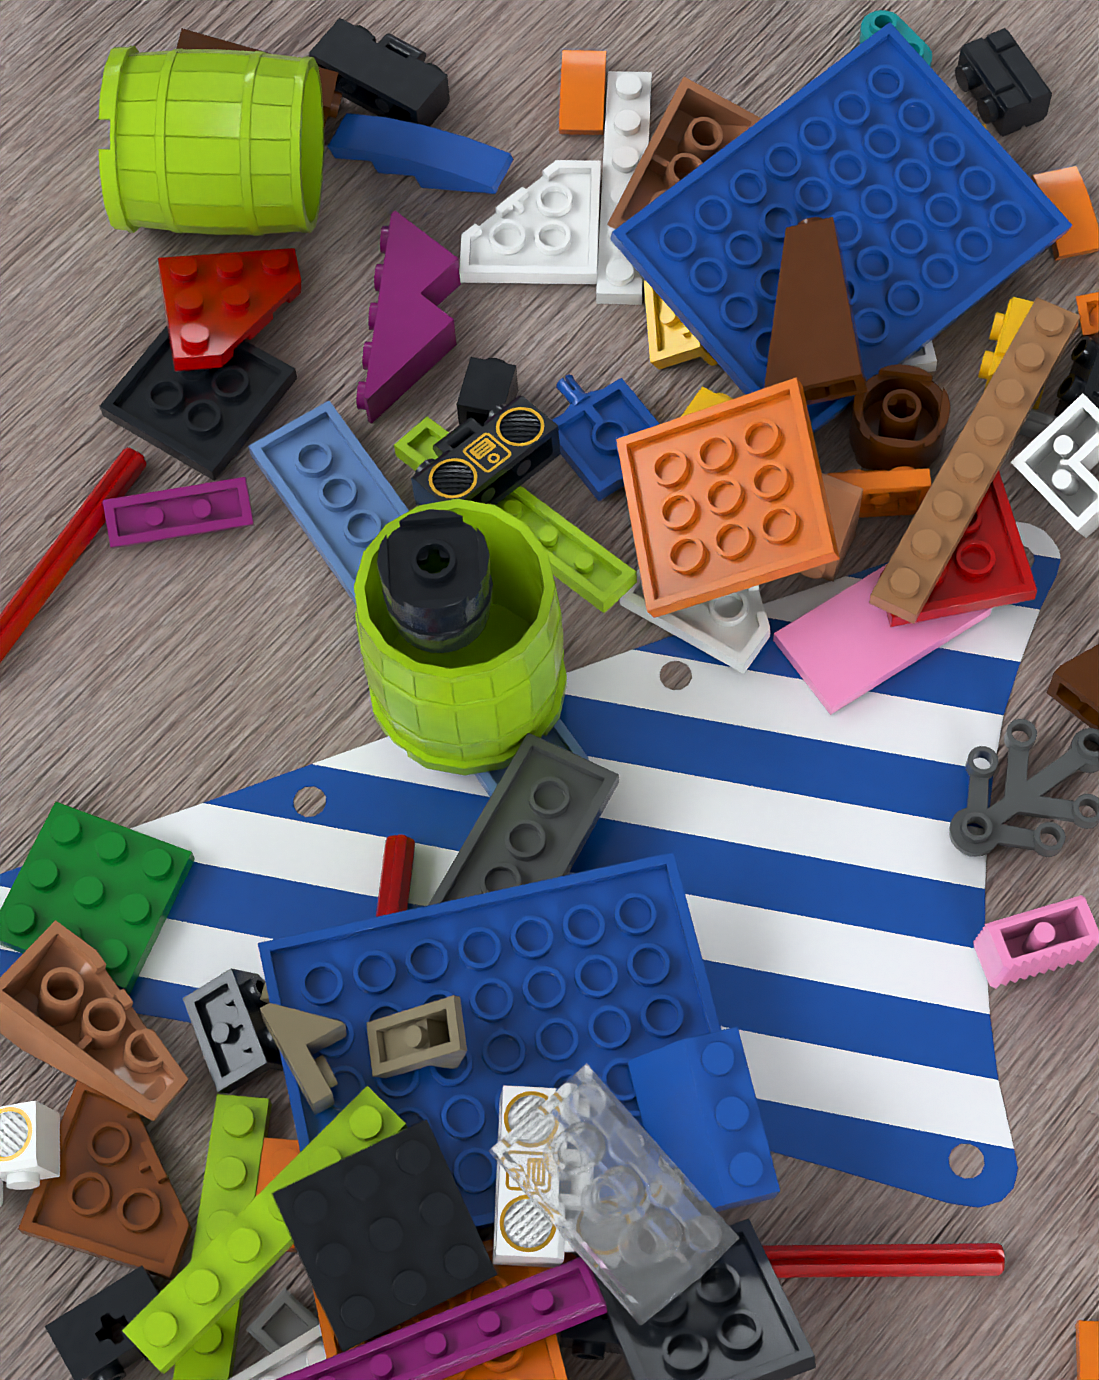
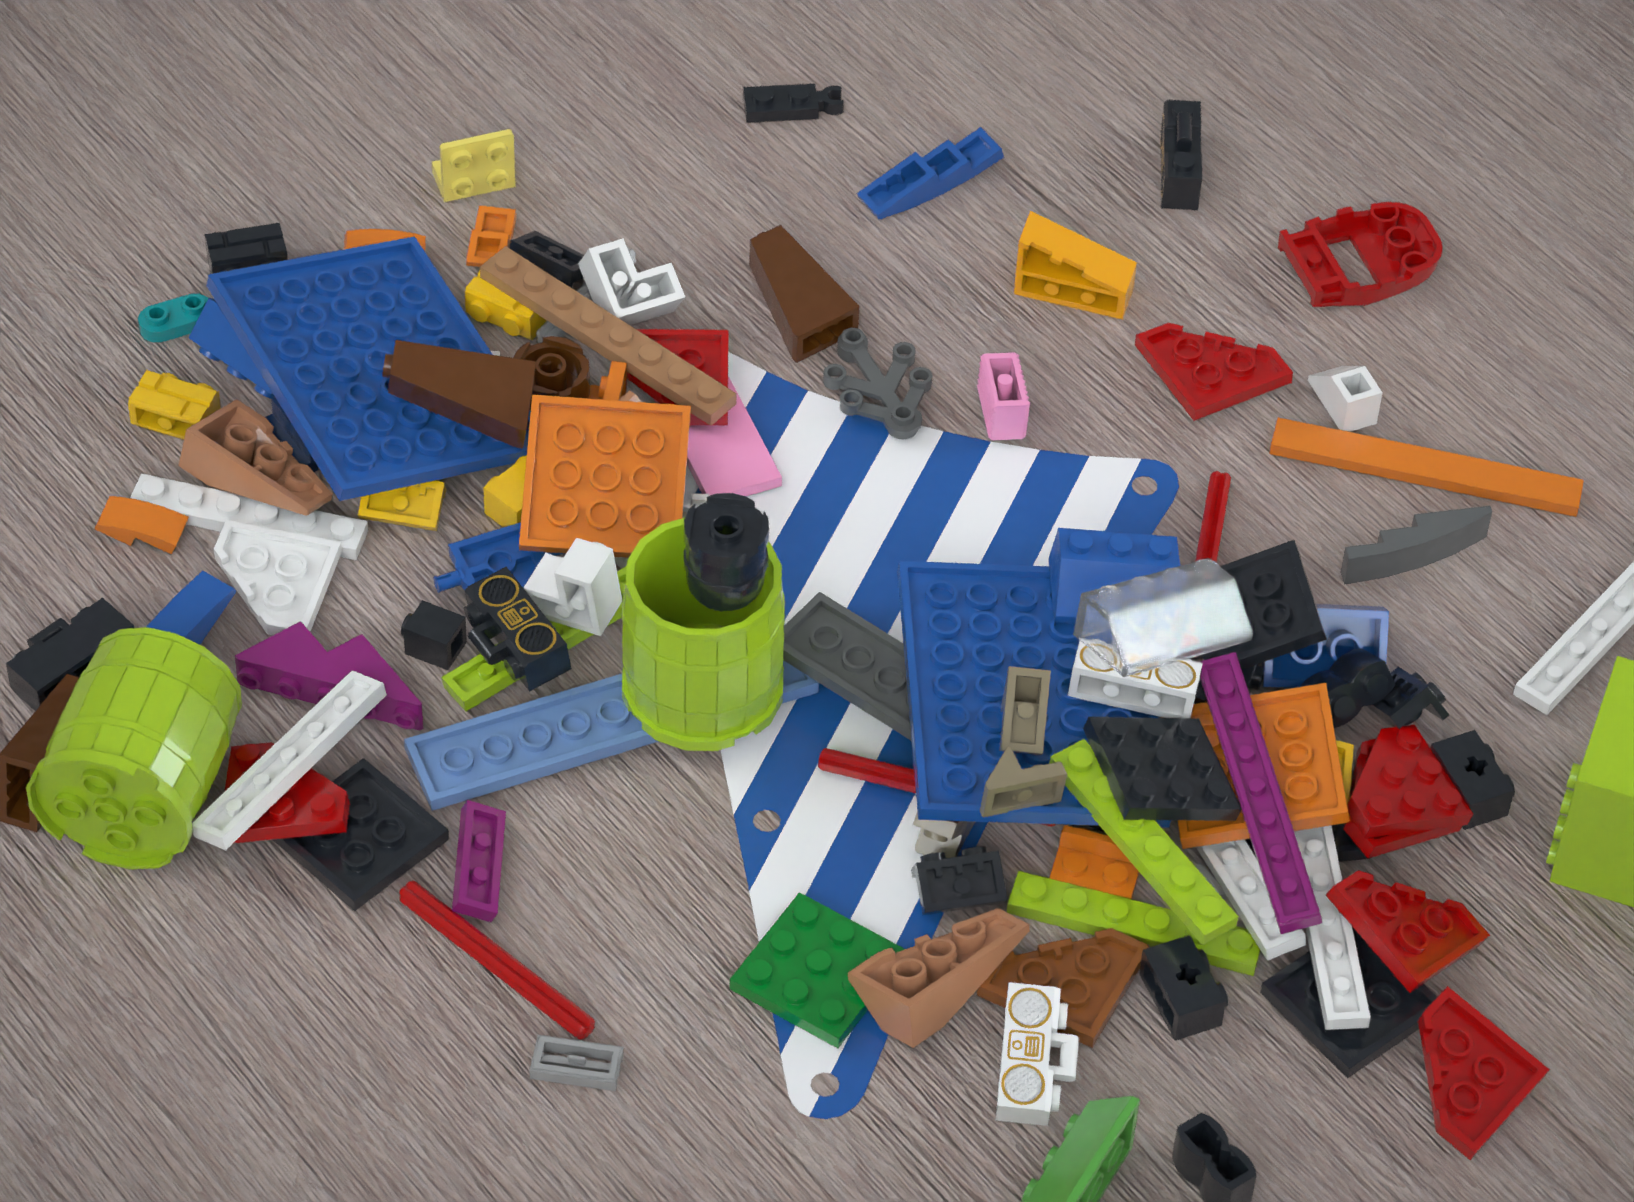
camera: 85 degrees left, 15 degrees down
(245, 288) = (288, 760): none -> white plate
(548, 497) = (578, 588): none -> white brick
(754, 68) = (170, 404): none -> yellow brick

